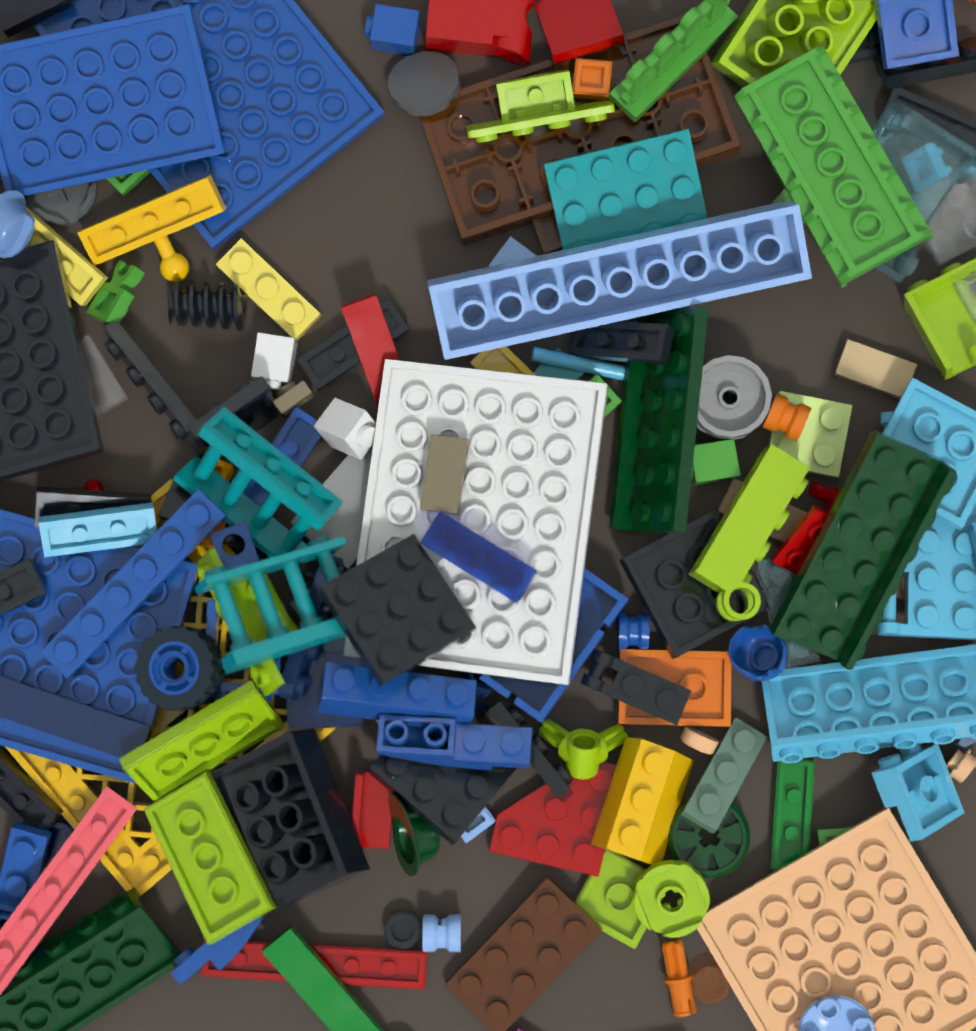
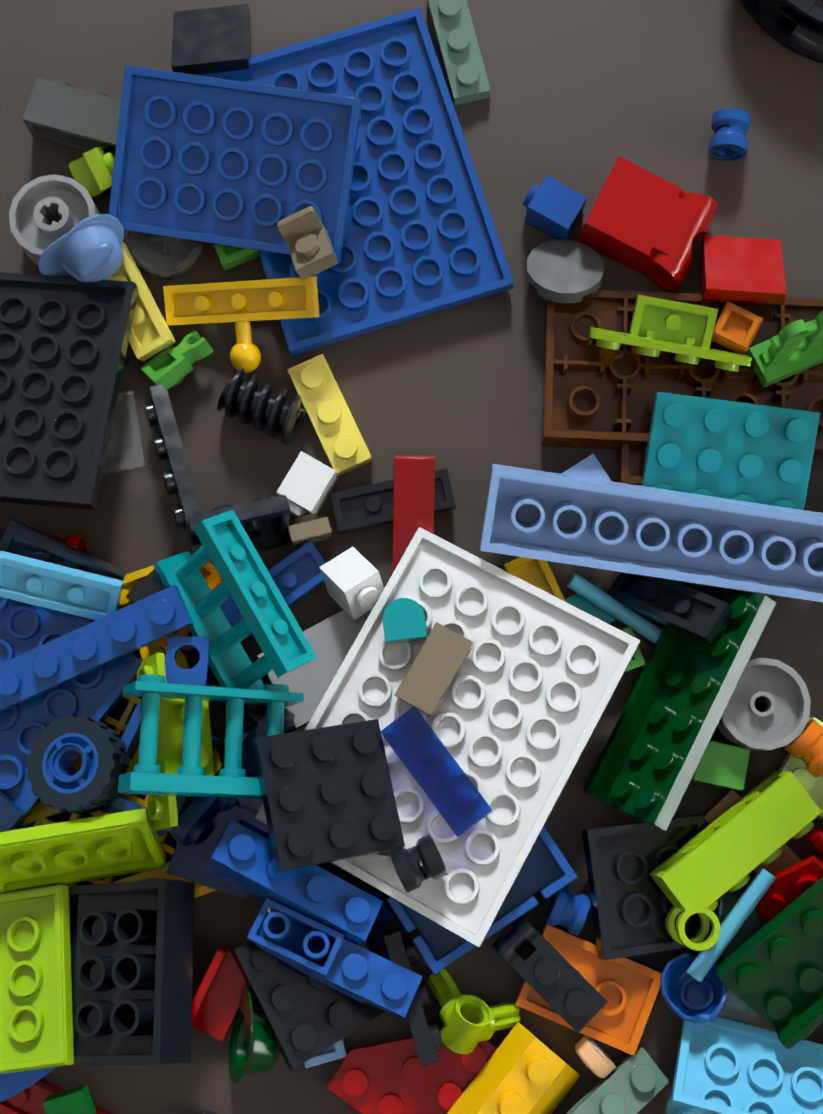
camera: 20 degrees right, 5 degrees down
(192, 149) = (307, 242): none -> dark tan bracket
(404, 444) = (404, 621): none -> teal tile
(486, 642) = (409, 868): none -> black wheel
(769, 587) = (732, 923): none -> medium azure bar

